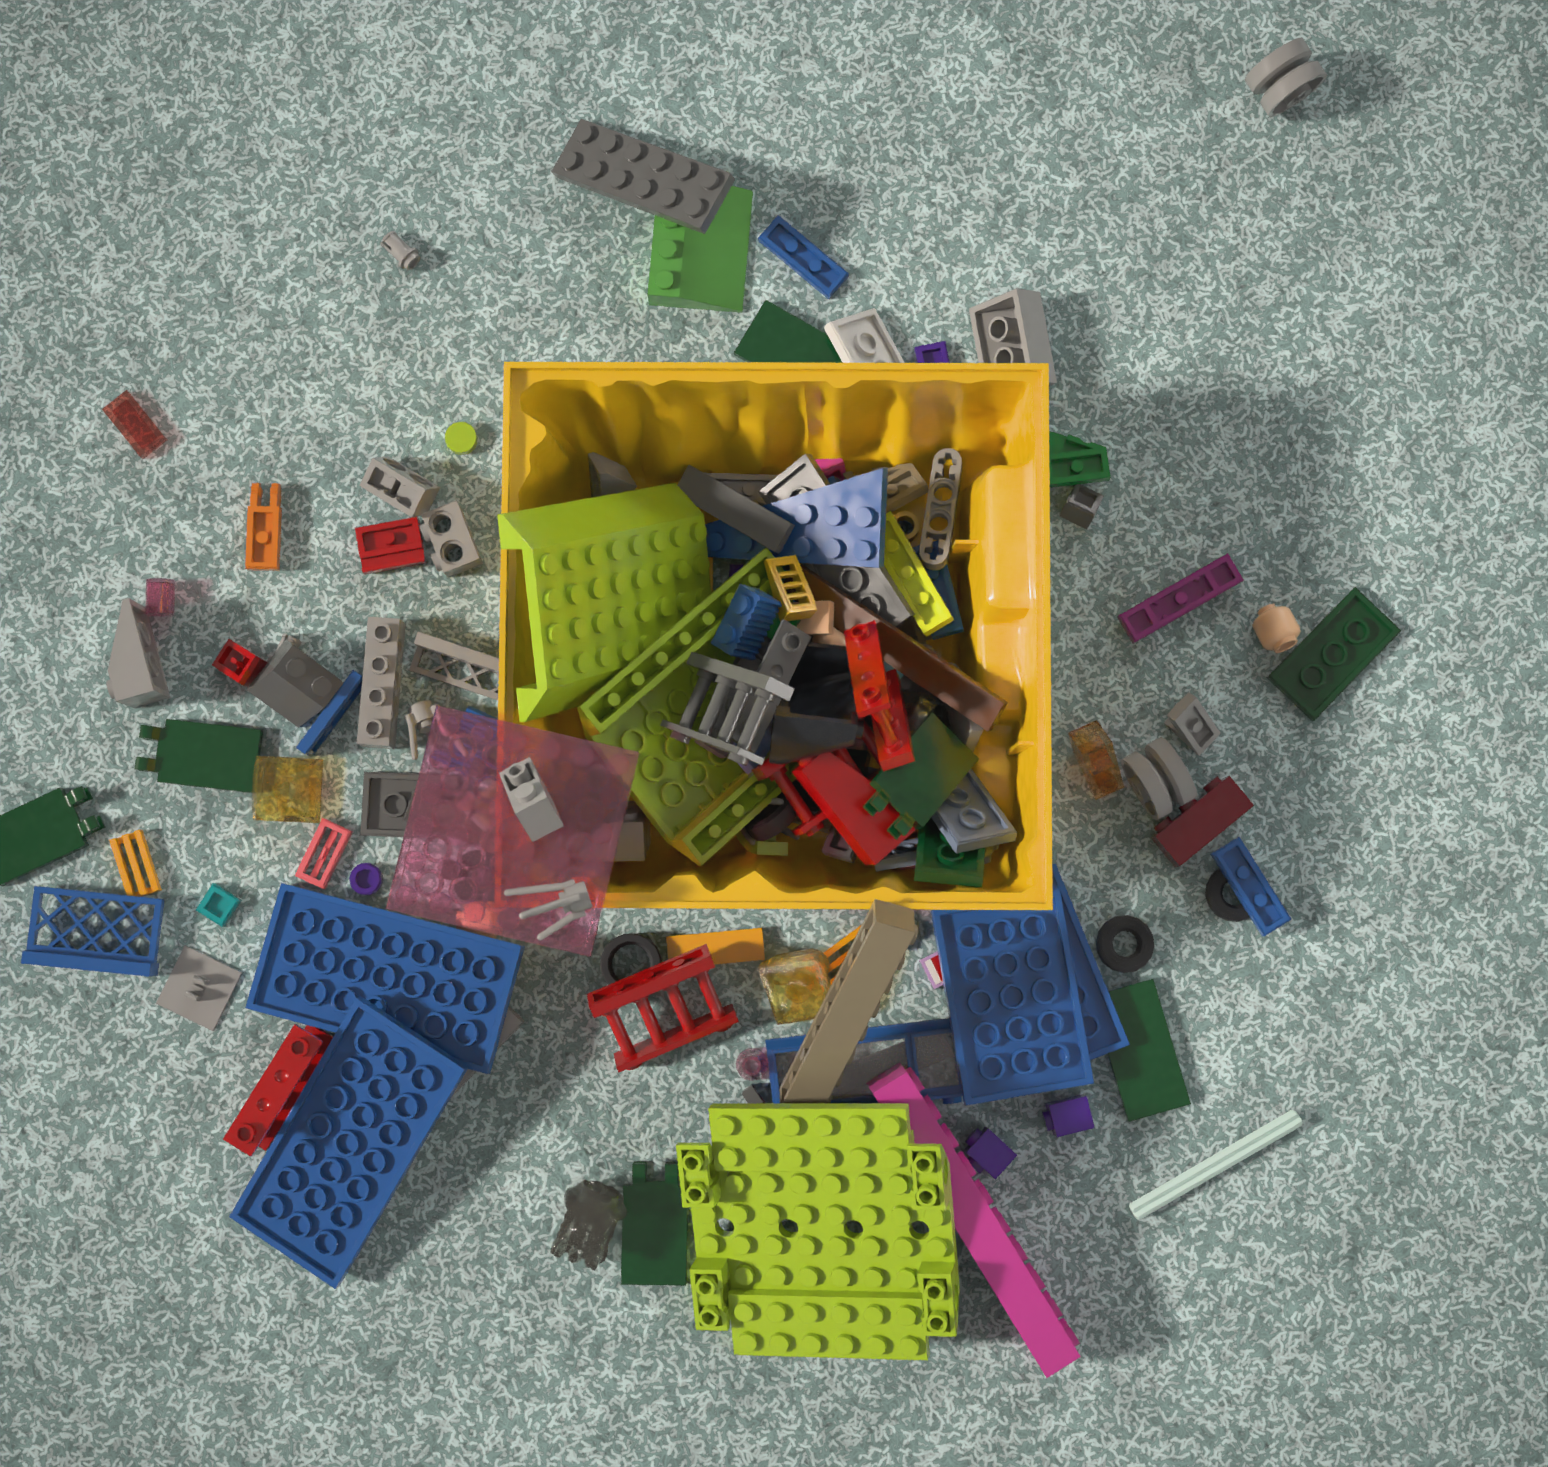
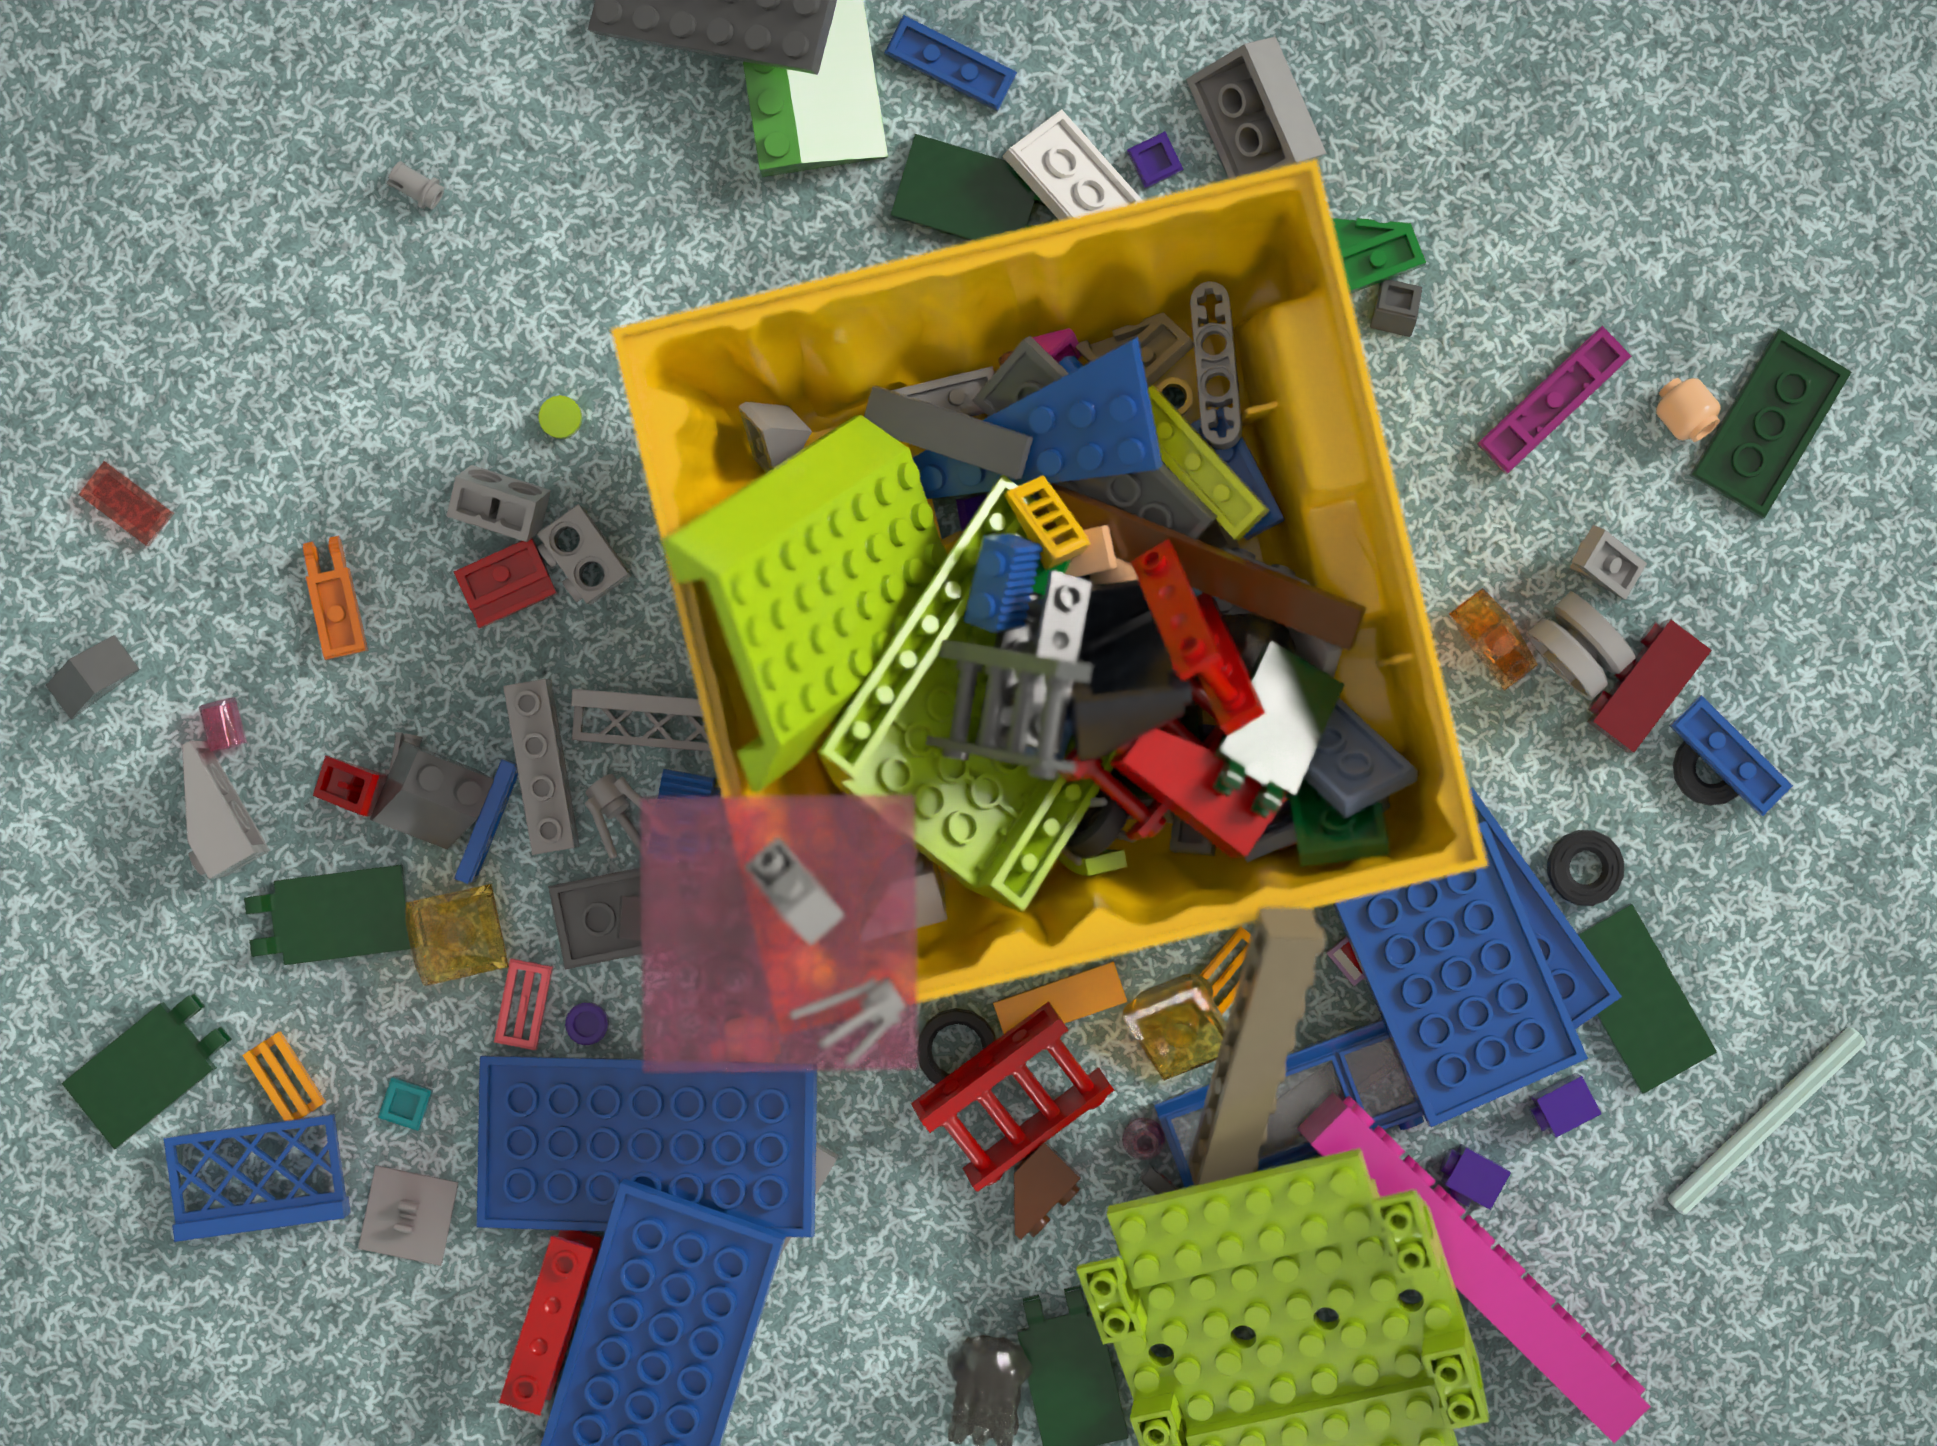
camera: 15 degrees left, 5 degrees up
(75, 539) = (91, 676): none -> dark grey slope
(665, 1079) = (1039, 1185): none -> reddish brown slope

